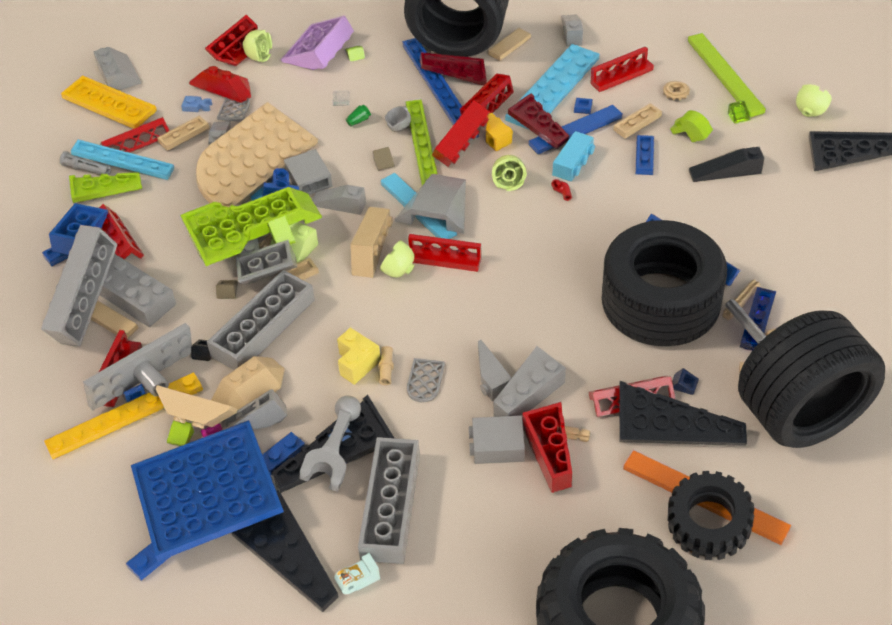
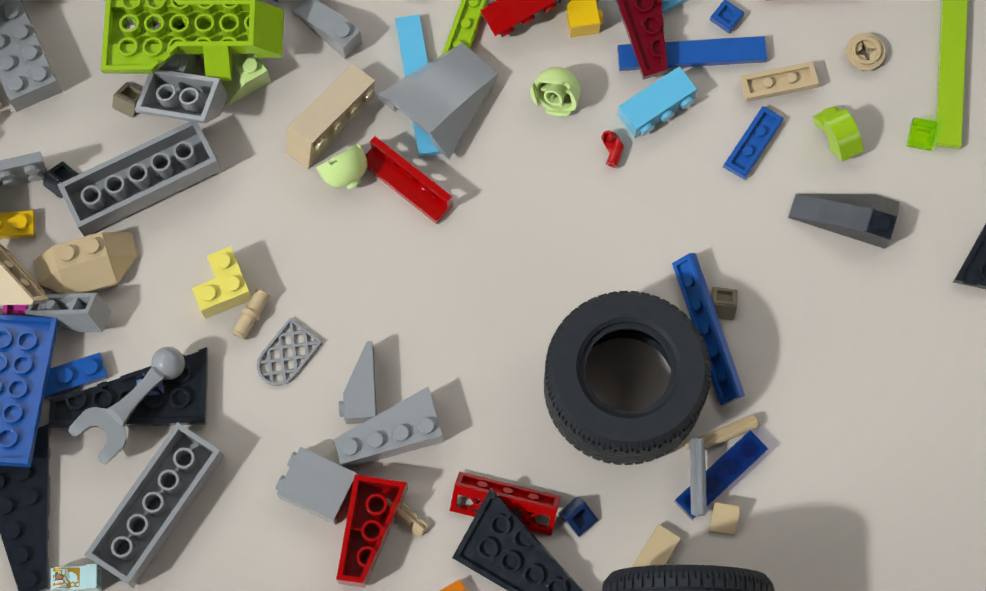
camera: 25 degrees right, 25 degrees up
(305, 269) = (232, 117): tan tile -> none

